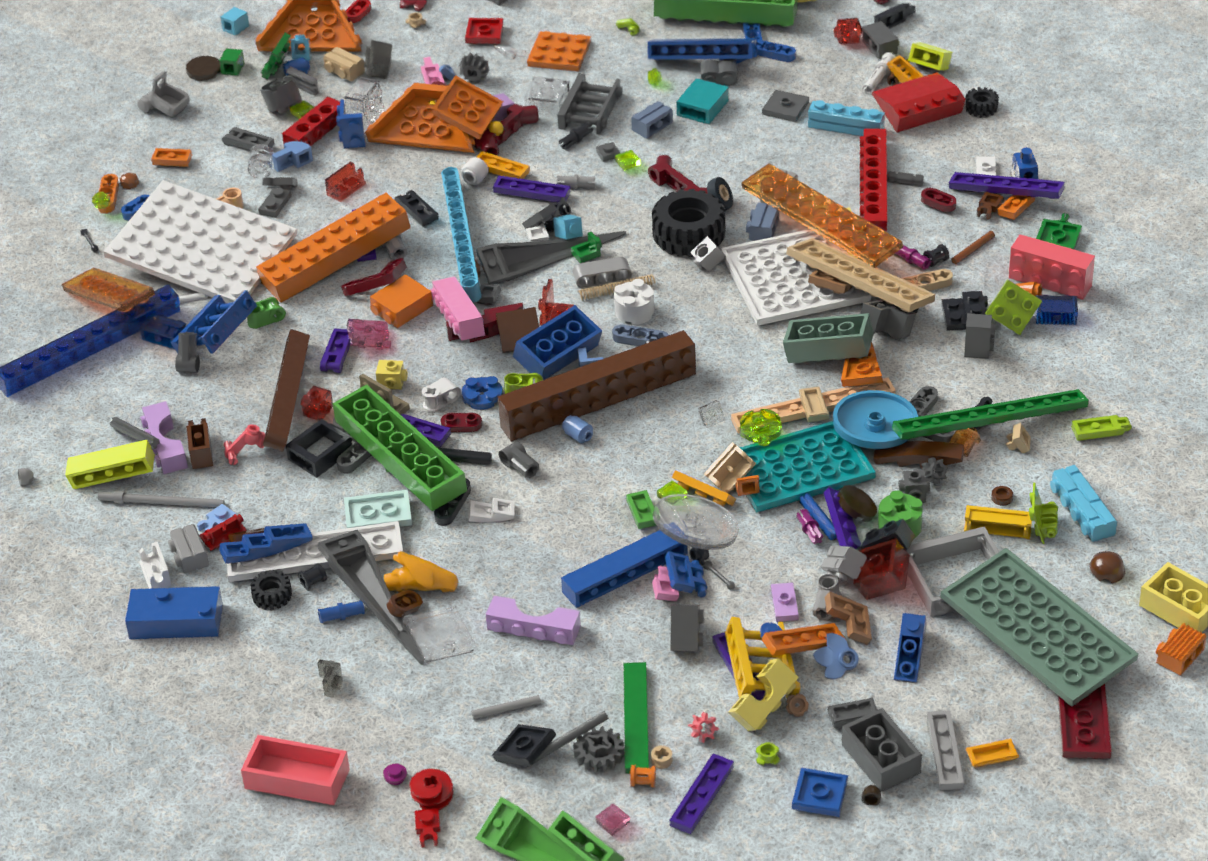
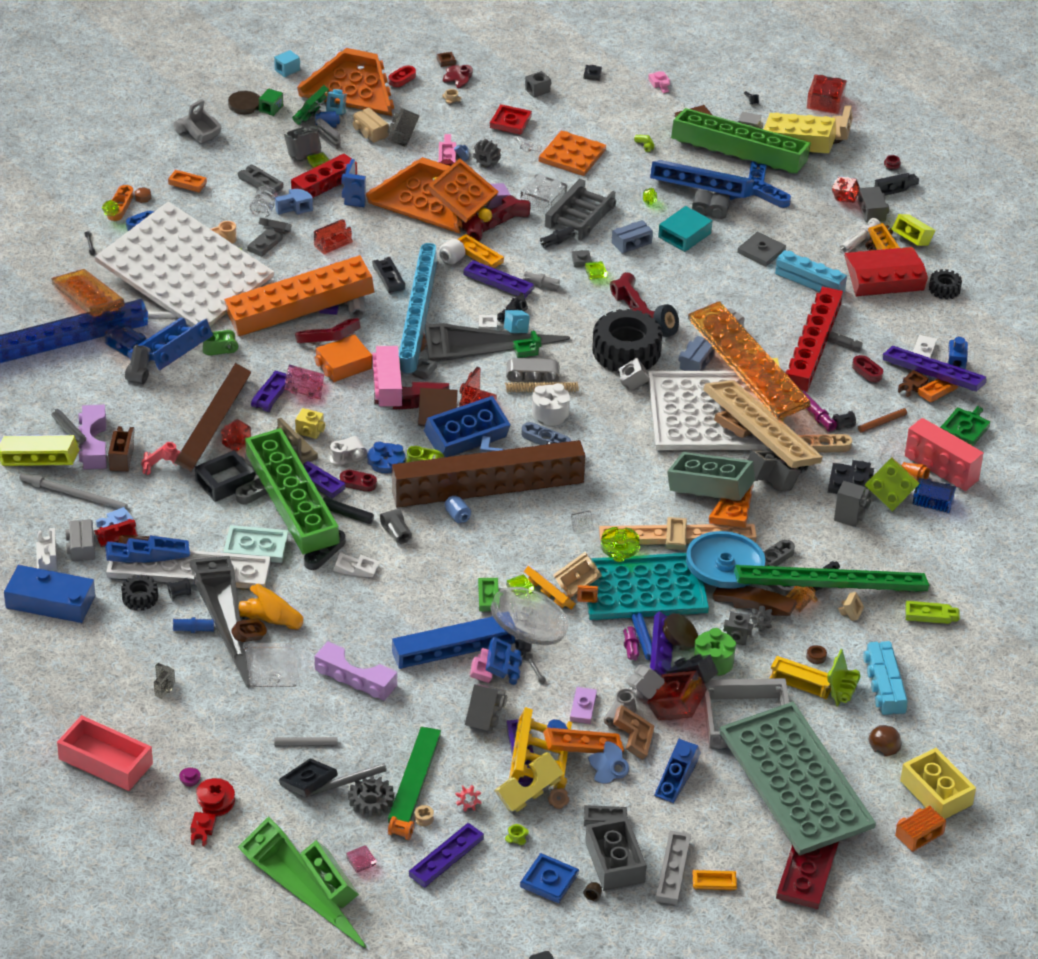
camera: 10 degrees right, 0 degrees up
(365, 98) = (375, 164): clear brick -> none
(540, 217) = (494, 307): dark grey plate -> none

